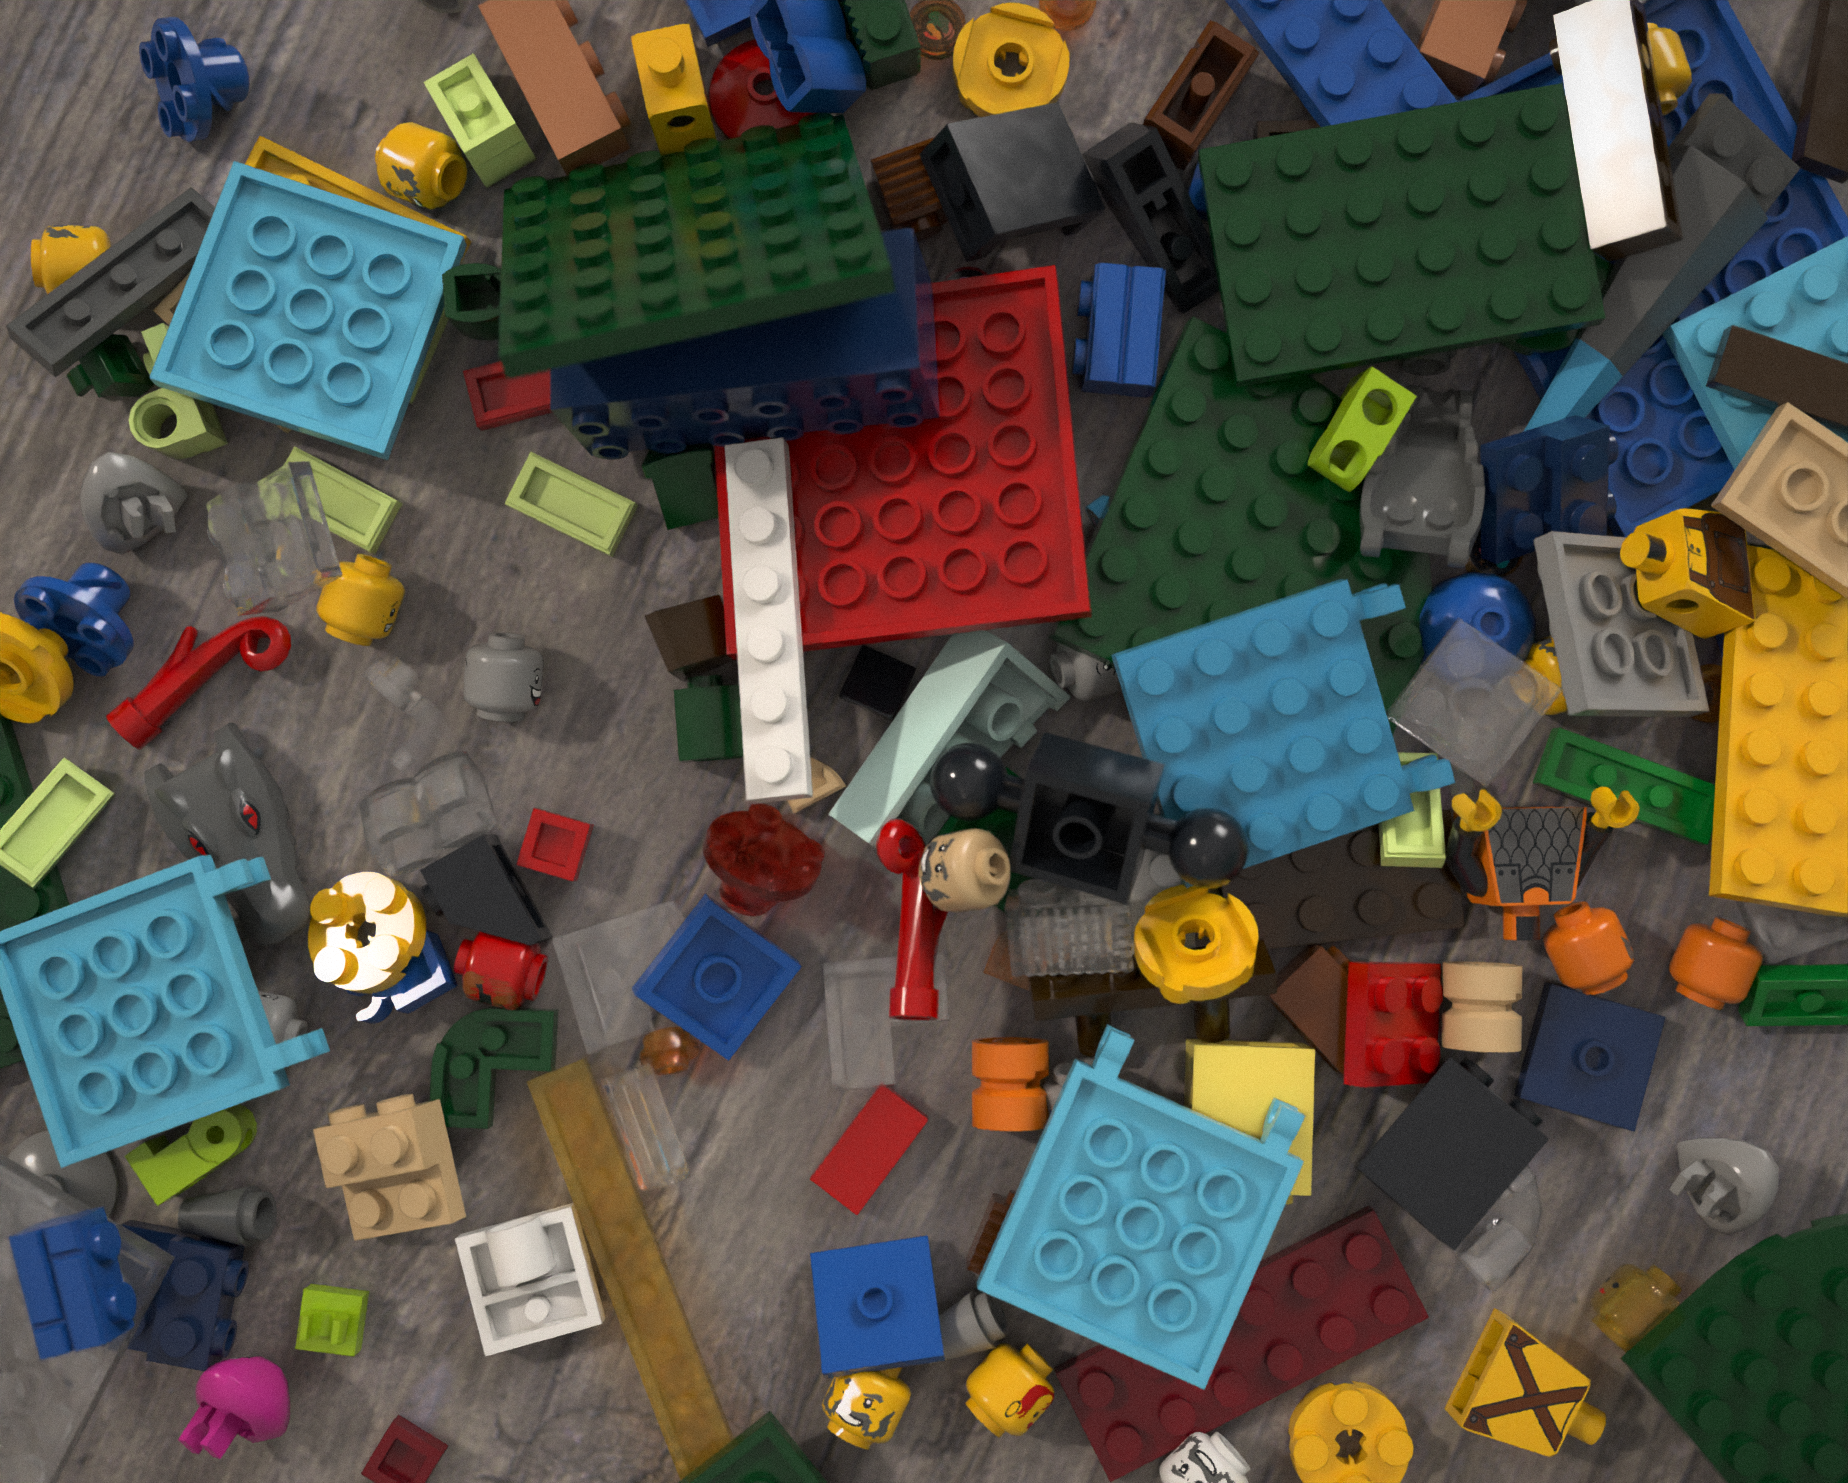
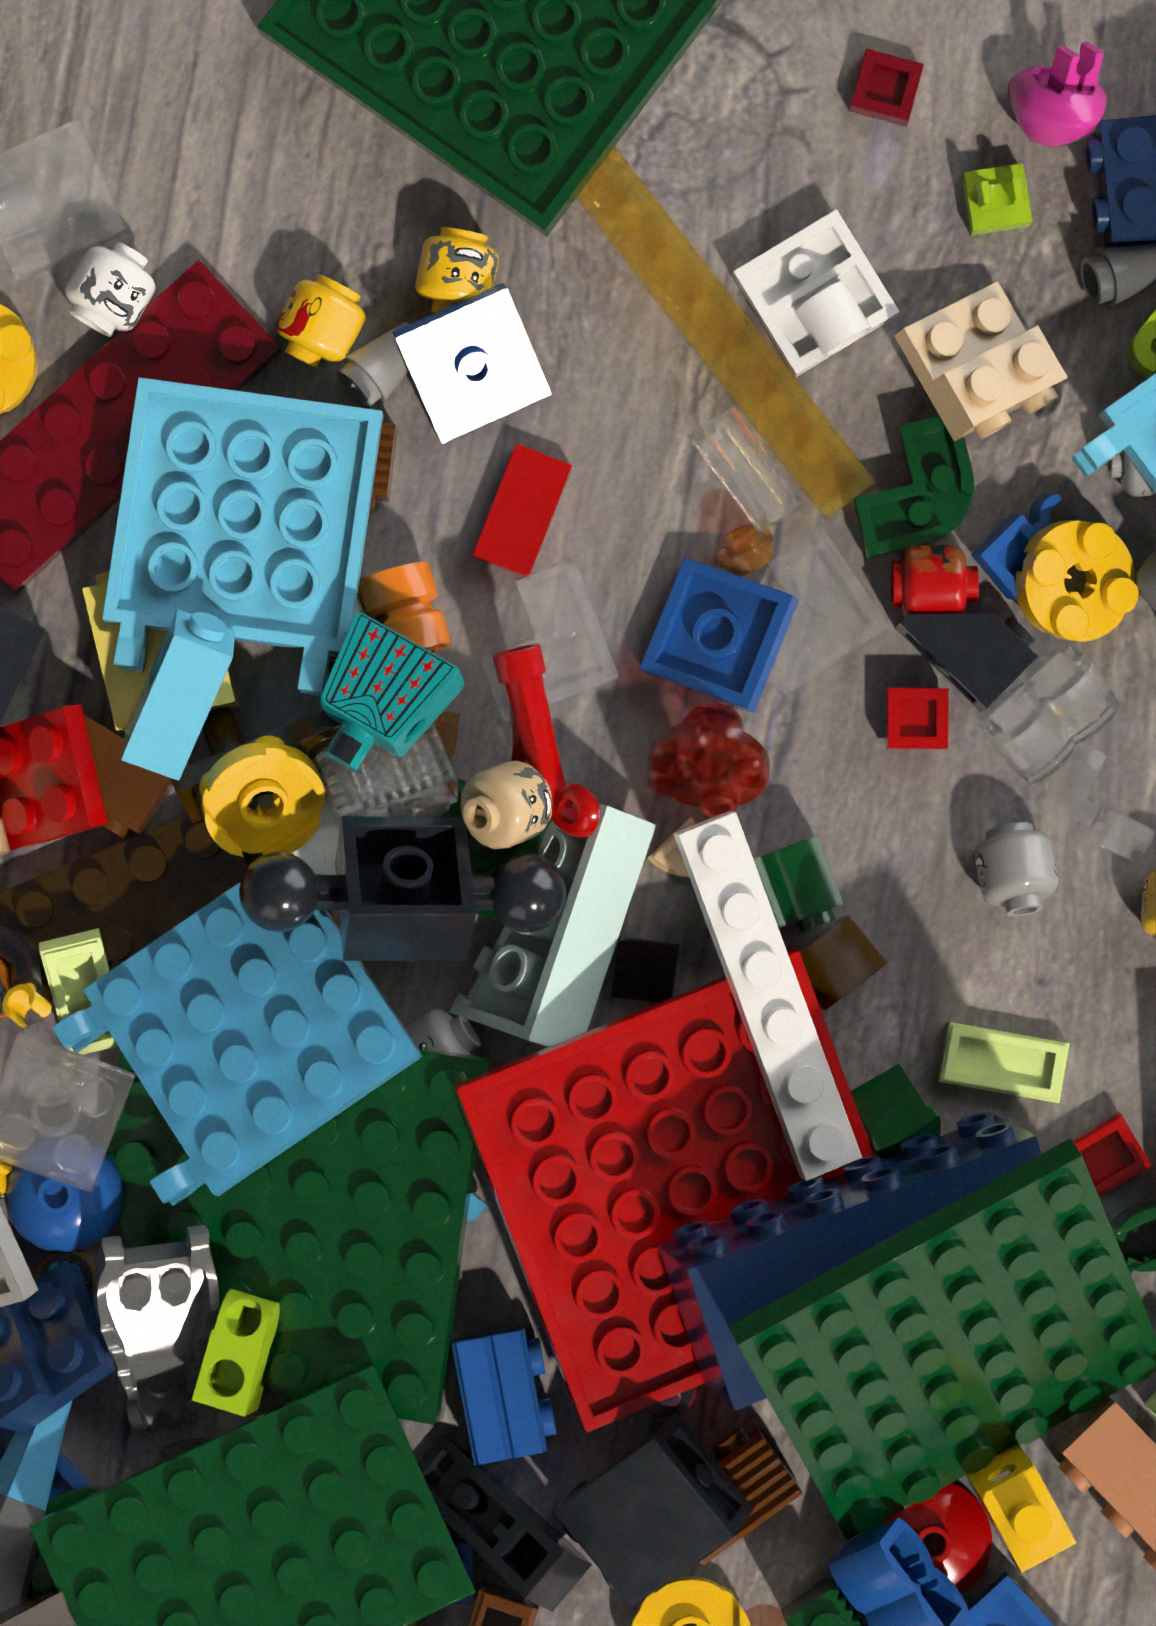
camera: 165 degrees right, 0 degrees up
(1052, 1013) = (384, 692): none -> teal torso
(1249, 1068) = (178, 693): none -> medium azure brick

